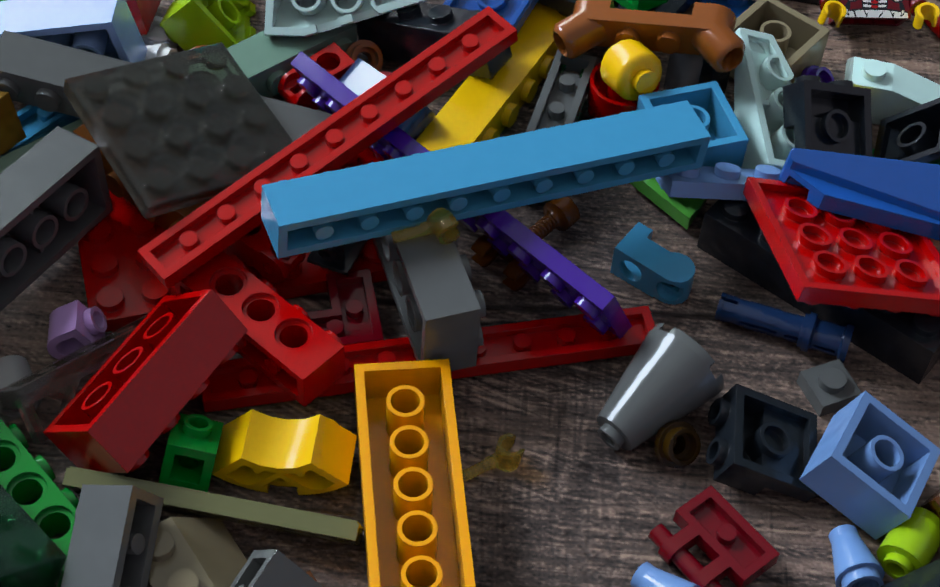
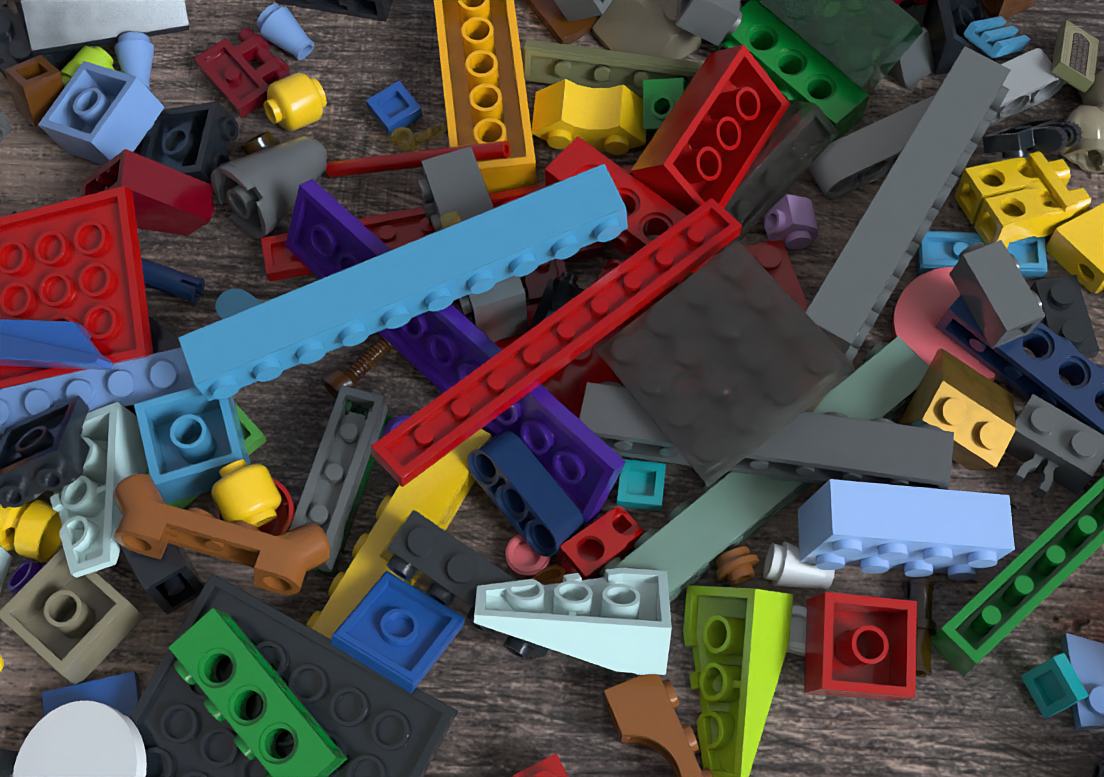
camera: 175 degrees left, 15 degrees up
(489, 382) = (411, 160): none -> red piece
(522, 488) = (394, 107): none -> blue plate
(643, 494) = (295, 101): none -> yellow head
(797, 363) = (162, 196): none -> dark red slope

